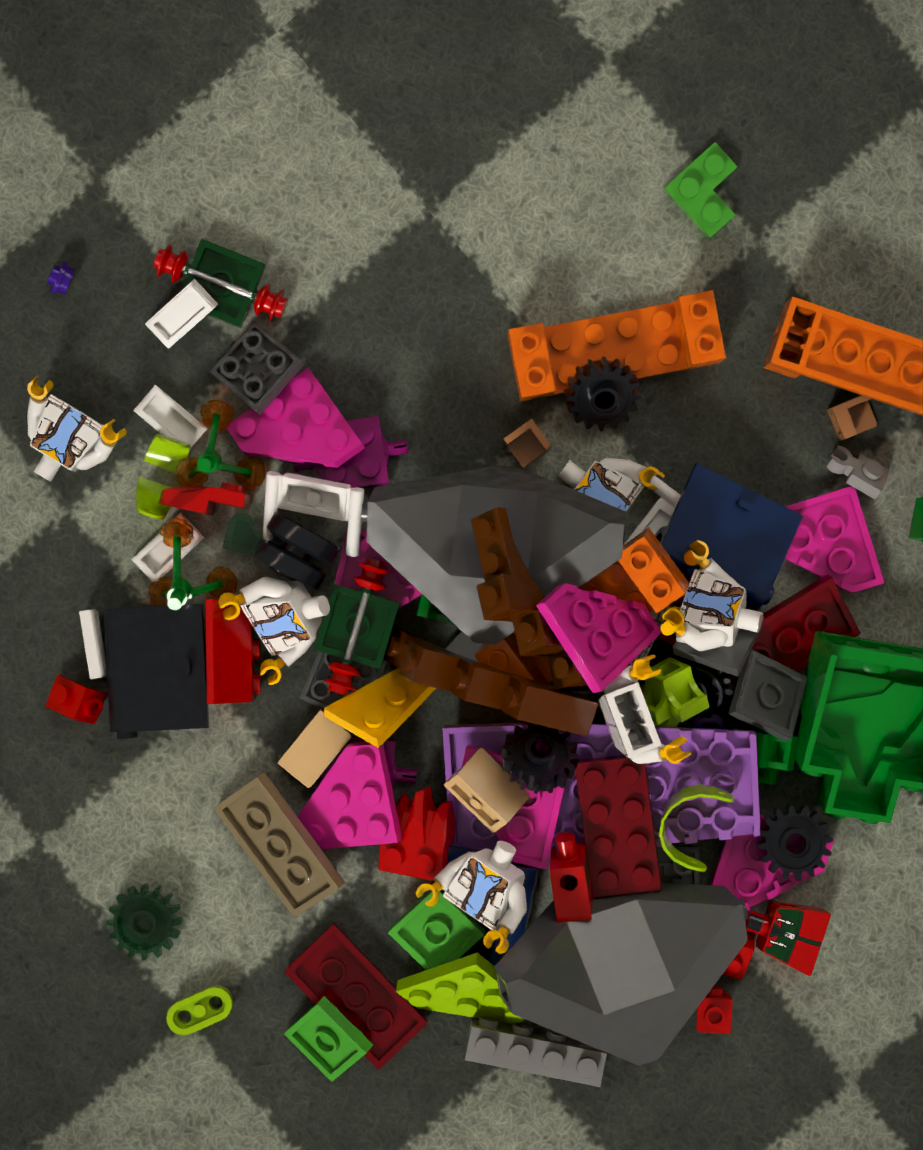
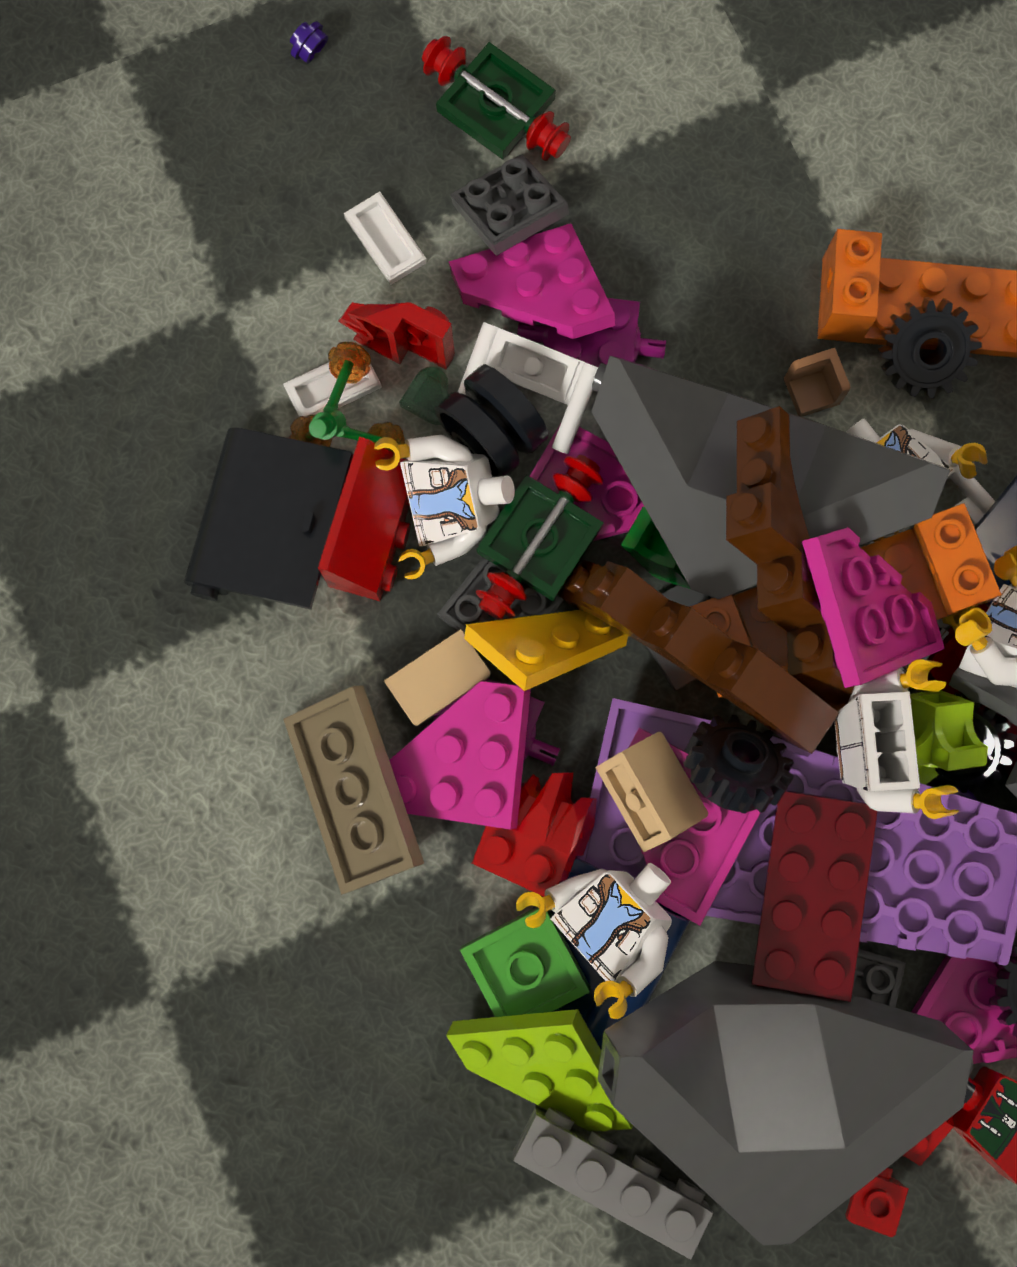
camera: 15 degrees right, 10 degrees down
(65, 433) = (253, 211): torso -> none
(75, 700) = (156, 533): red bracket -> none
(93, 643) = (200, 467): white tile -> none
(131, 934) = (120, 833): clear green gear -> none
(164, 453) = (369, 273): lime piece -> none
(181, 313) = (438, 116): white tile -> none
(195, 471) = (441, 248): clear orange plant -> none
(200, 1009) = (178, 981): lime plate -> none
(328, 1039) = (335, 1074): bright green plate -> none
(360, 992) = (390, 1028): dark red plate -> none
(570, 879) = (732, 947): red torso -> none
(686, 794) = (894, 888): lime piece -> none

